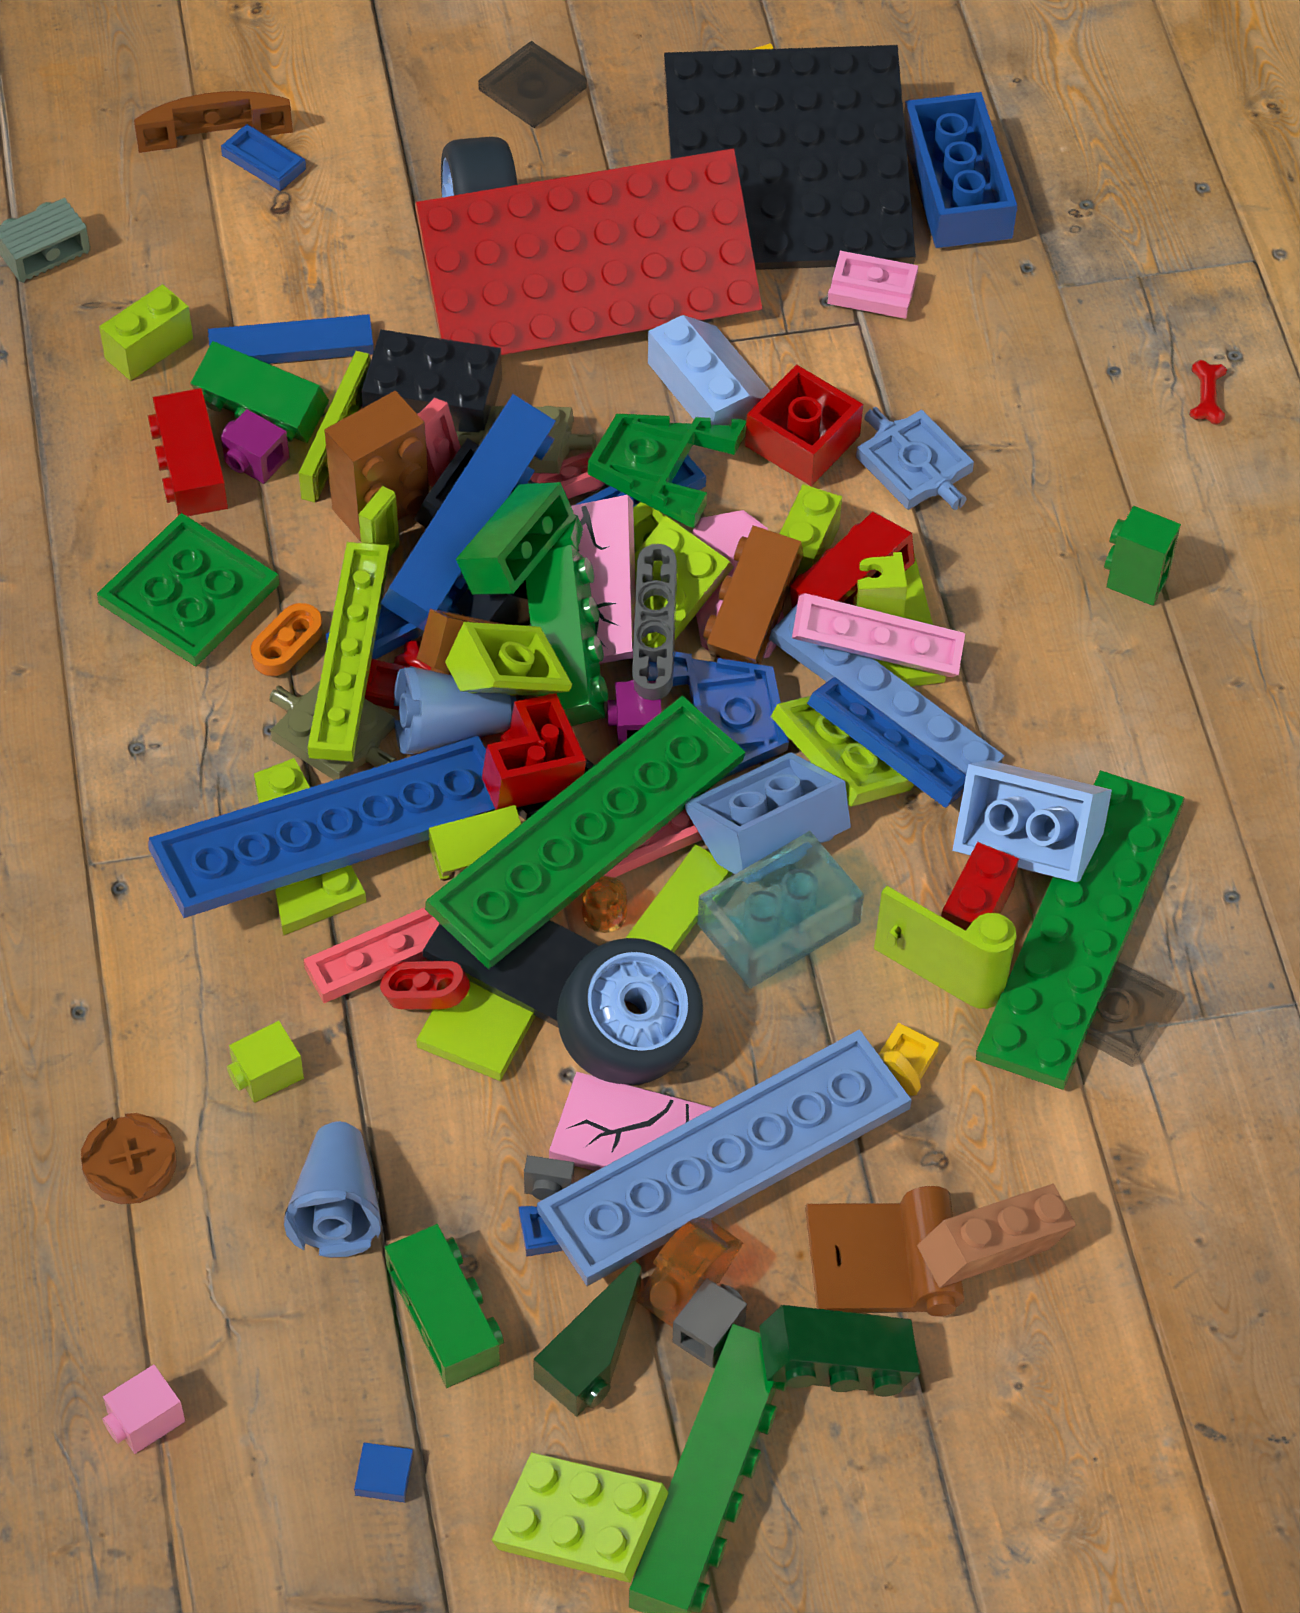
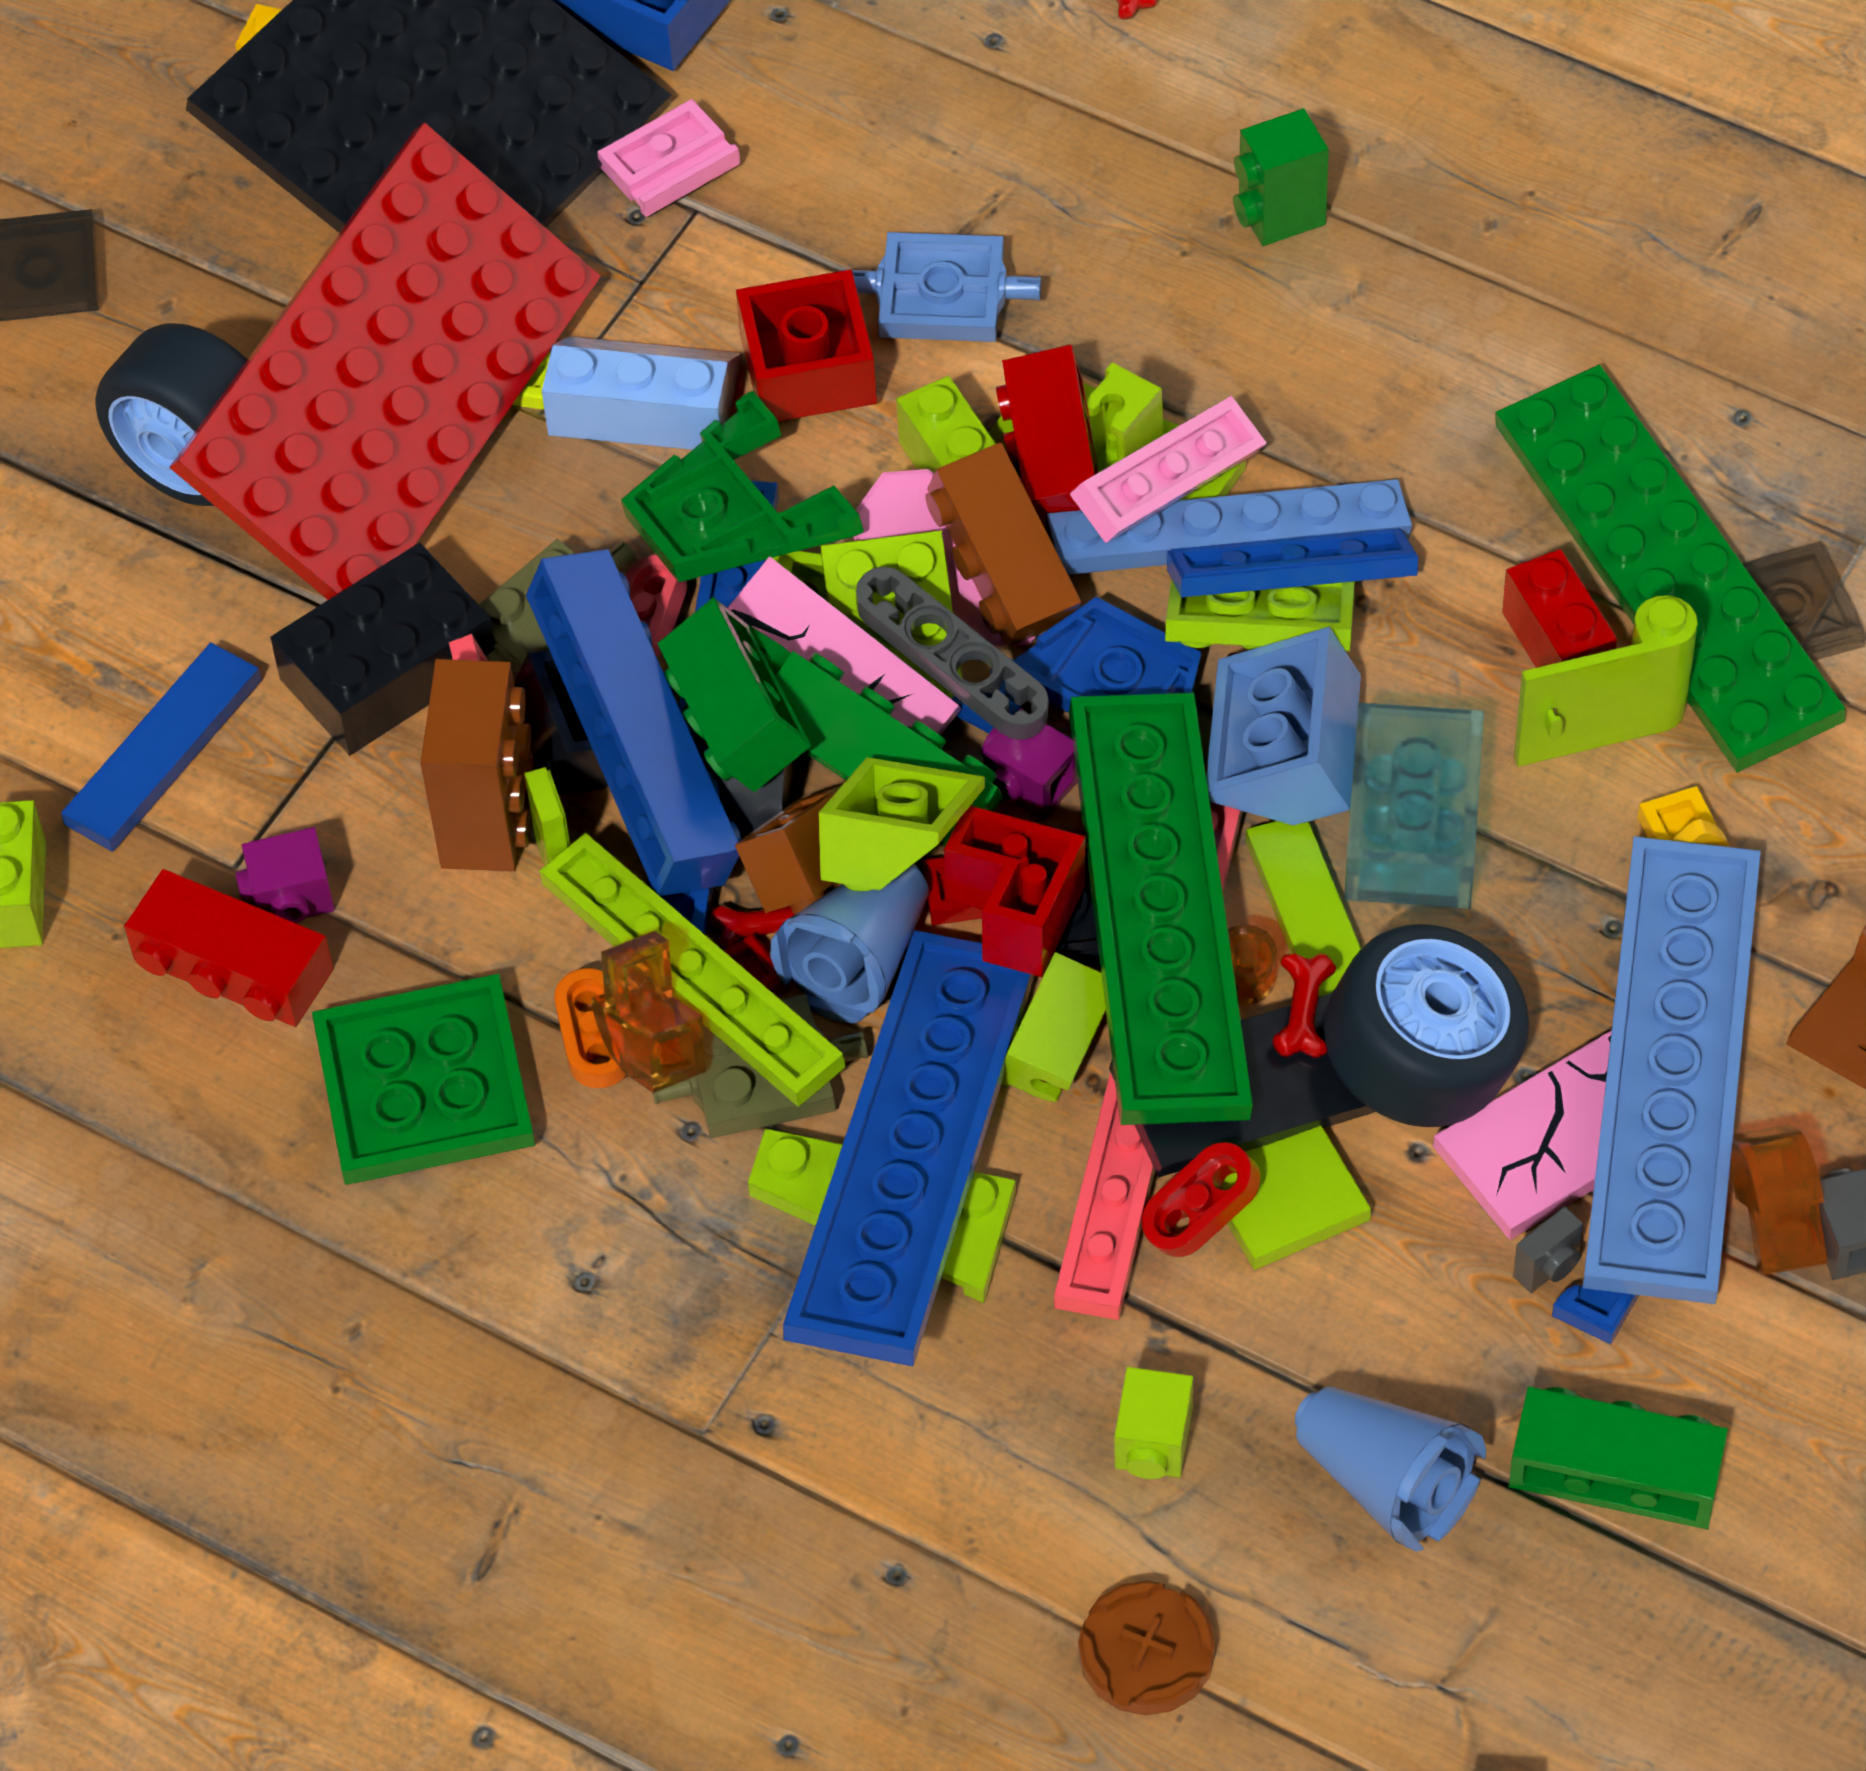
camera: 45 degrees left, 0 degrees up
(243, 383) = (211, 817): green brick -> none
(298, 649) = (639, 1019): none -> clear orange brick
(345, 402) = (342, 780): lime tile -> none
(383, 1472) = (1767, 1654): blue tile -> none
(571, 955) = (1300, 1031): none -> red piece
(584, 1354) = (1791, 1349): dark green slope -> none
(1032, 816) = (1512, 505): light blue slope -> none

